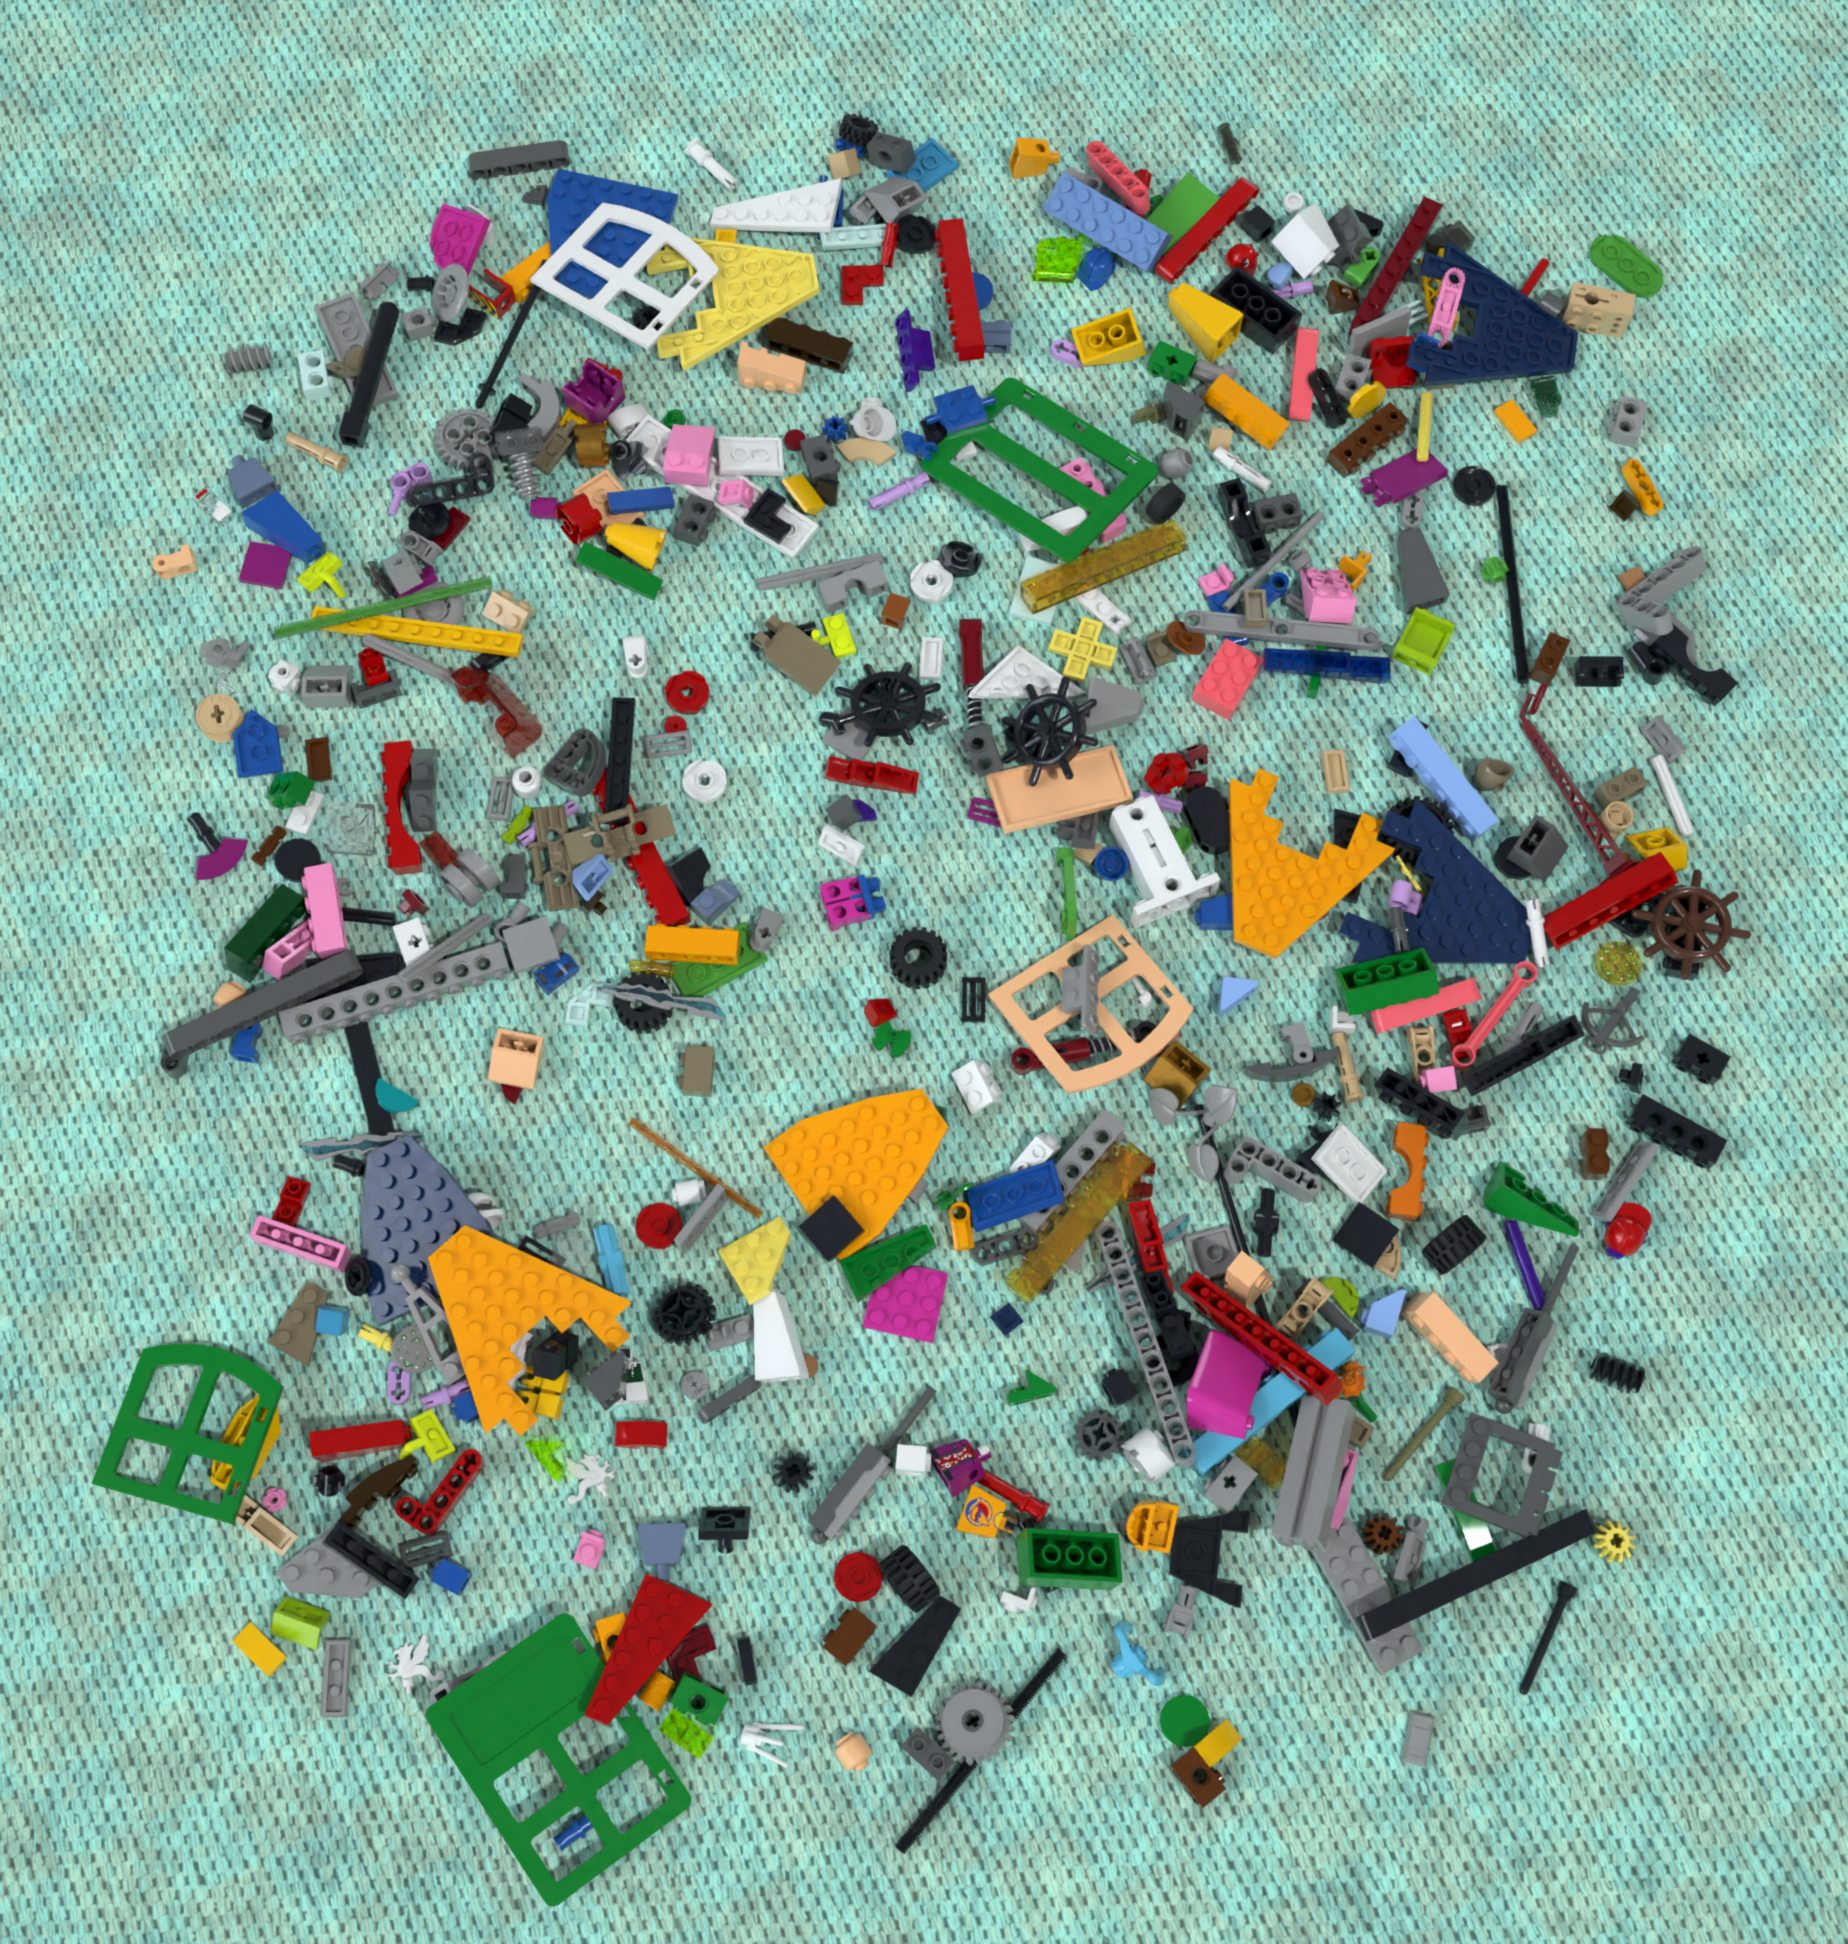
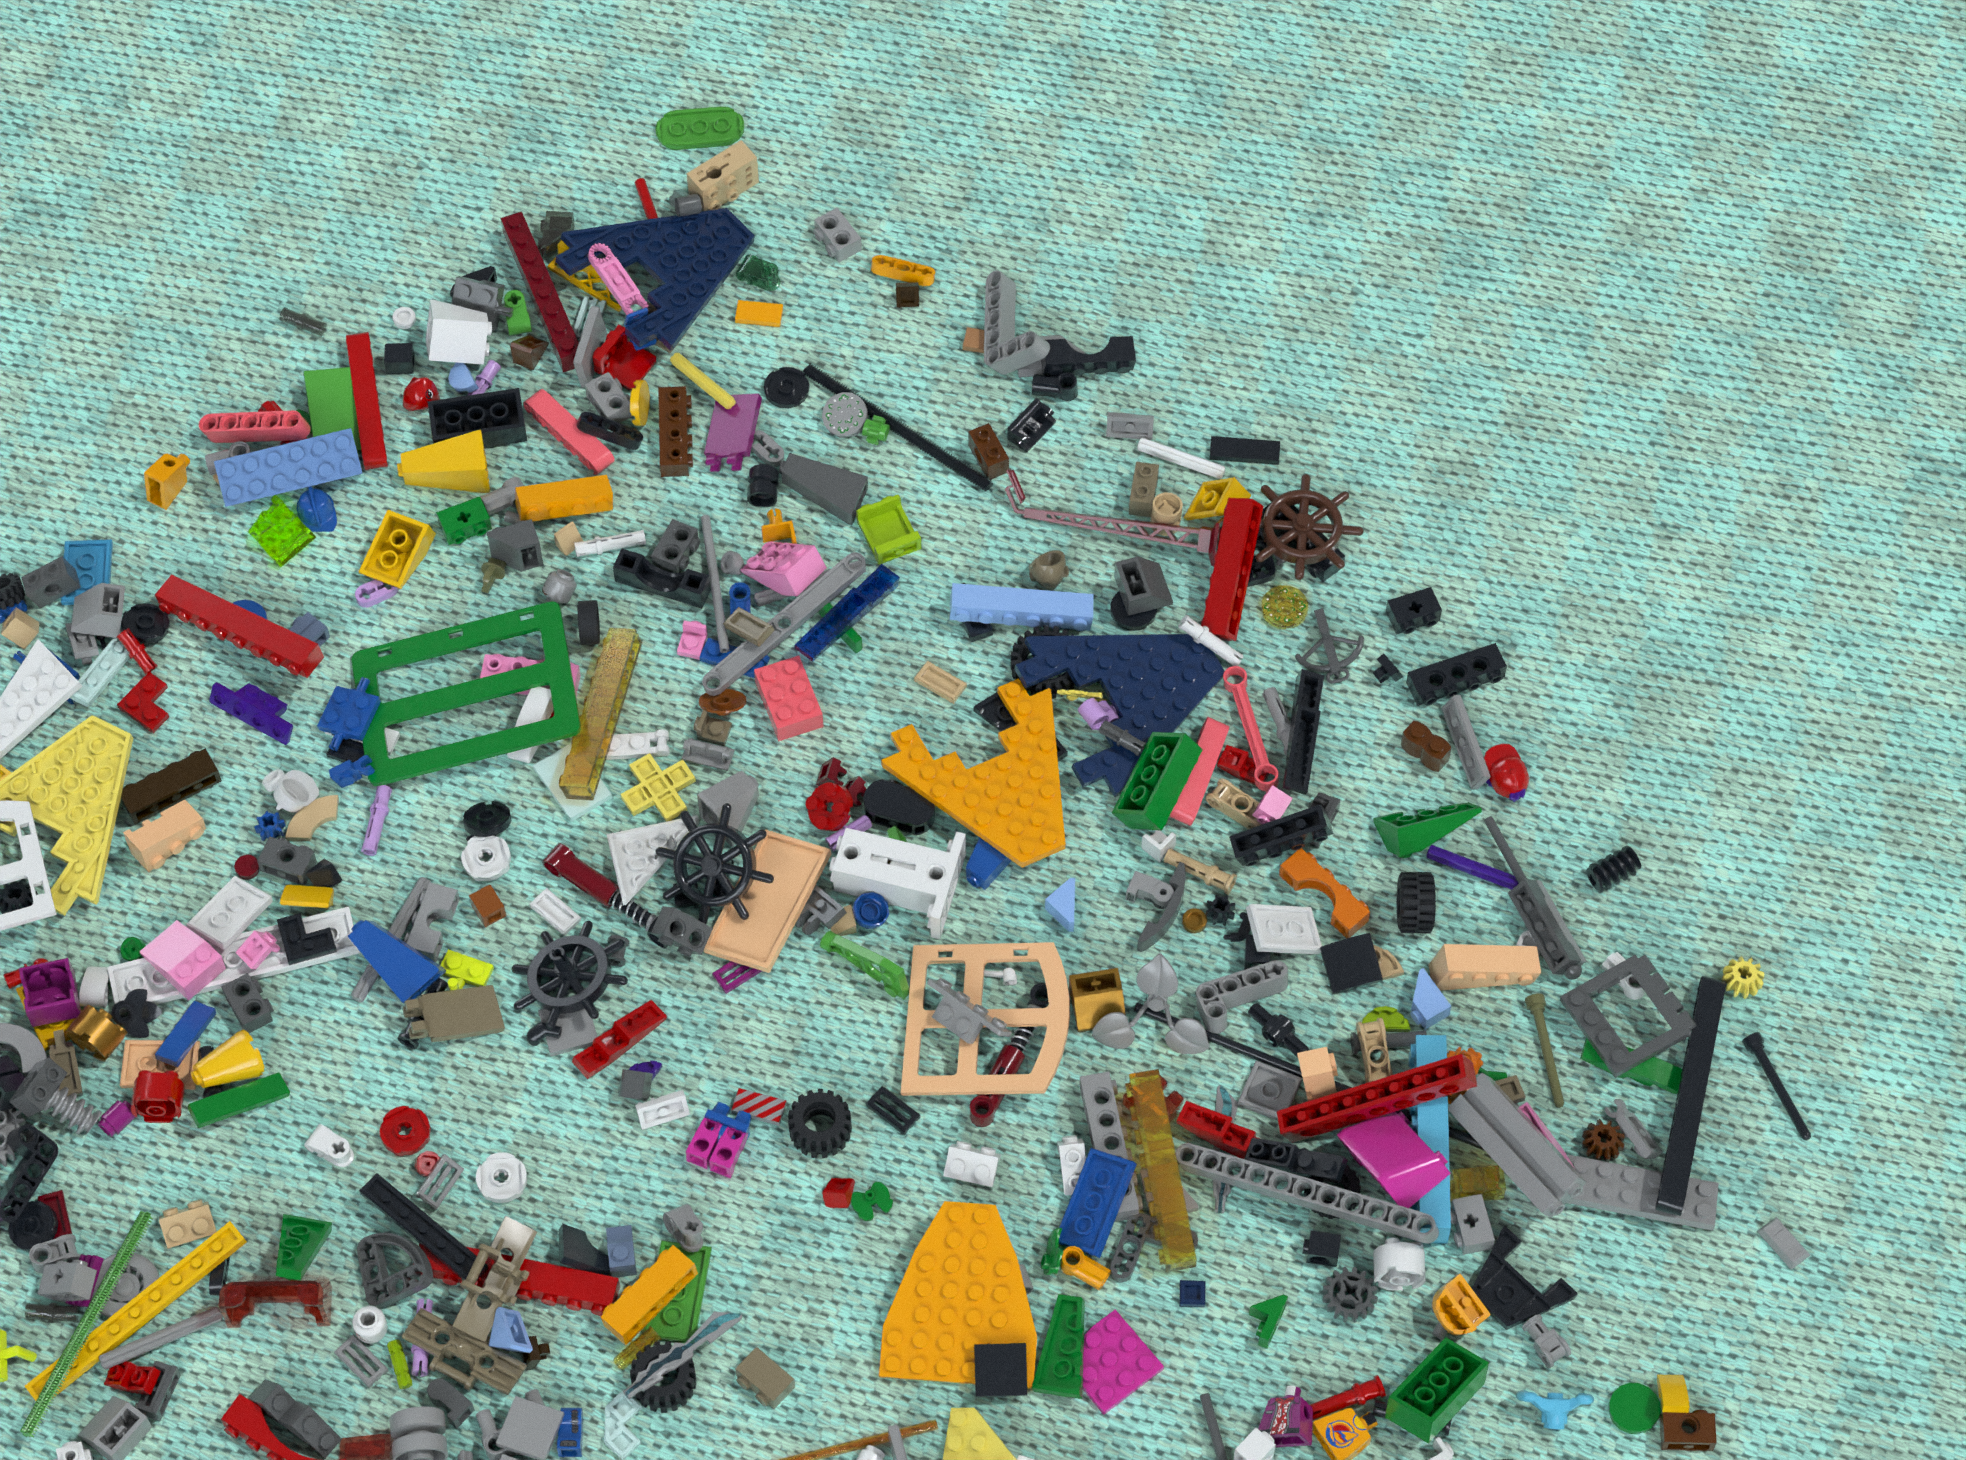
camera: 50 degrees left, 10 degrees down
(544, 691) = (299, 1245): none -> green wing
(800, 586) = (397, 963): none -> blue slope
(899, 907) = (760, 1106): none -> tile
(1379, 531) = (763, 485): none -> black wheel
(1487, 540) = (845, 415): none -> light grey tile
(1722, 835) = (1244, 450): none -> black tile

